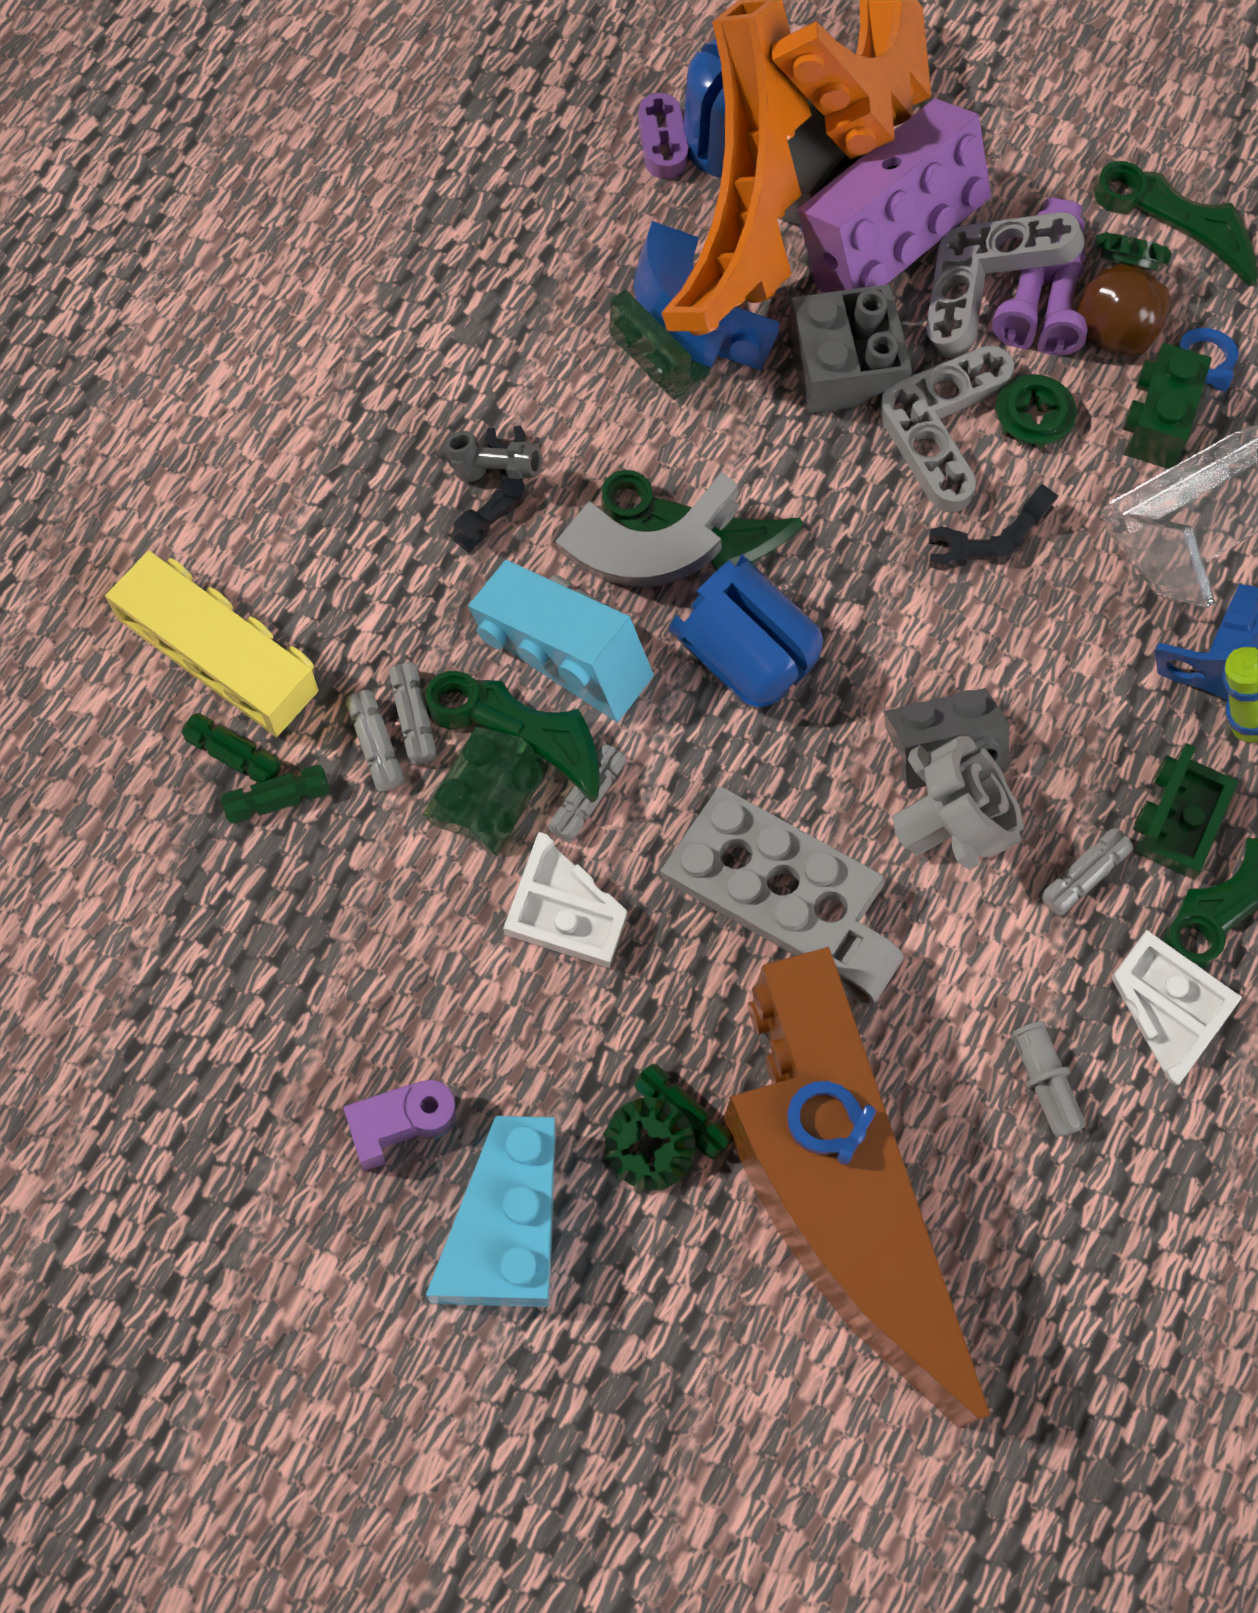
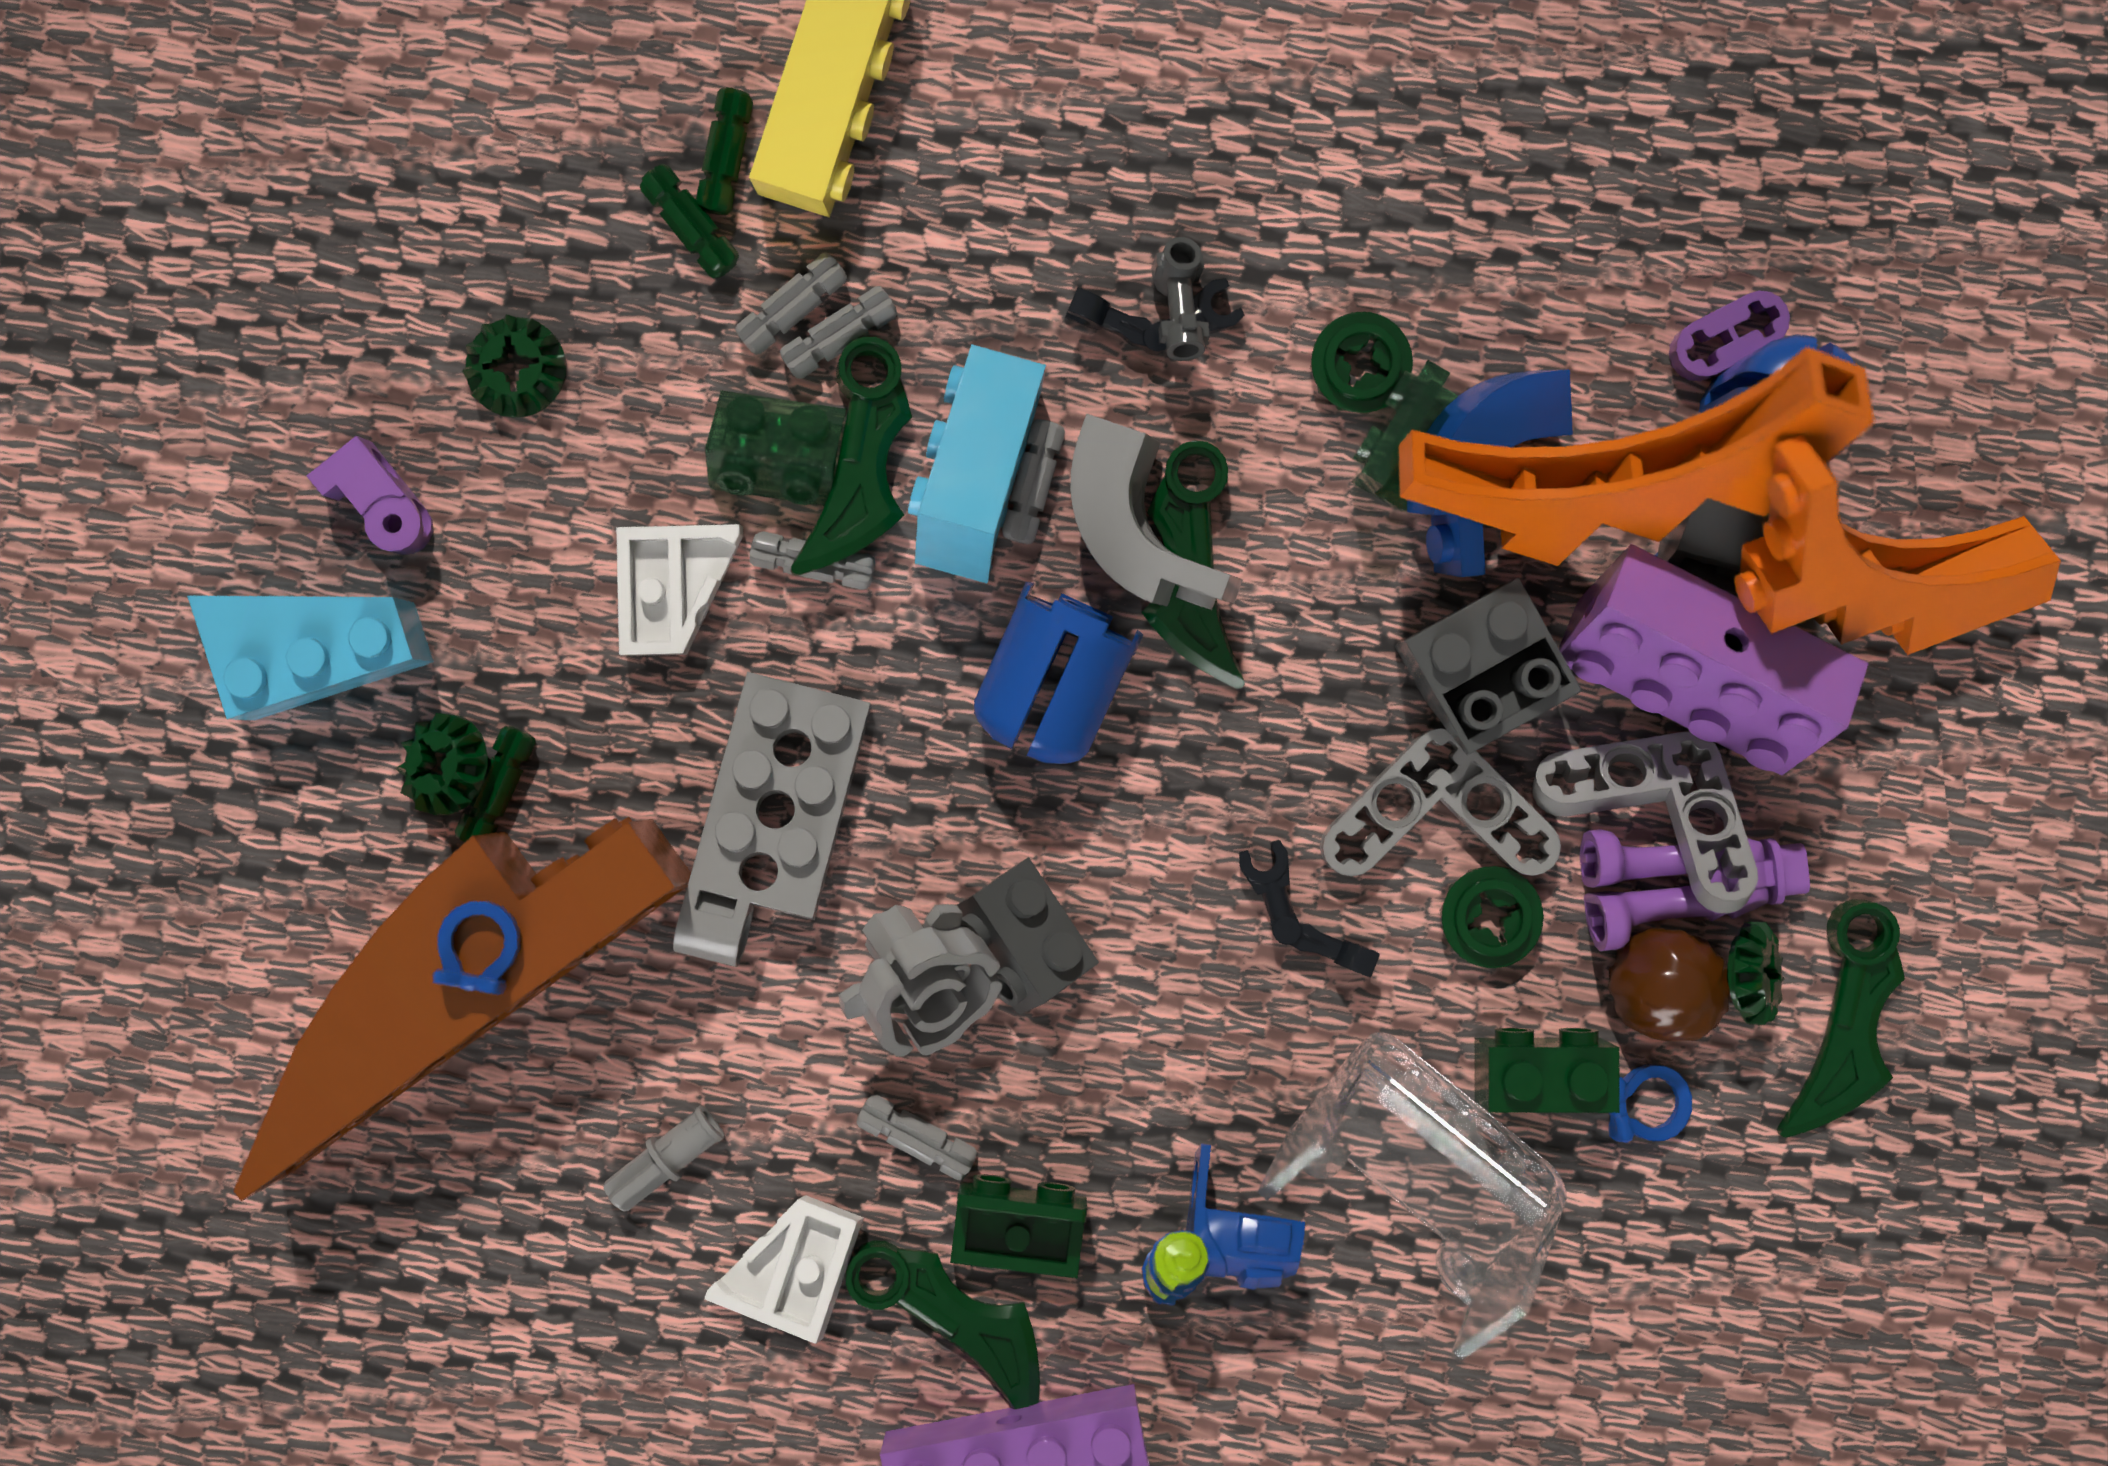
camera: 80 degrees right, 20 degrees up
(348, 992) = (536, 385): none -> dark green gear
(587, 345) = (1349, 335): none -> dark green gear

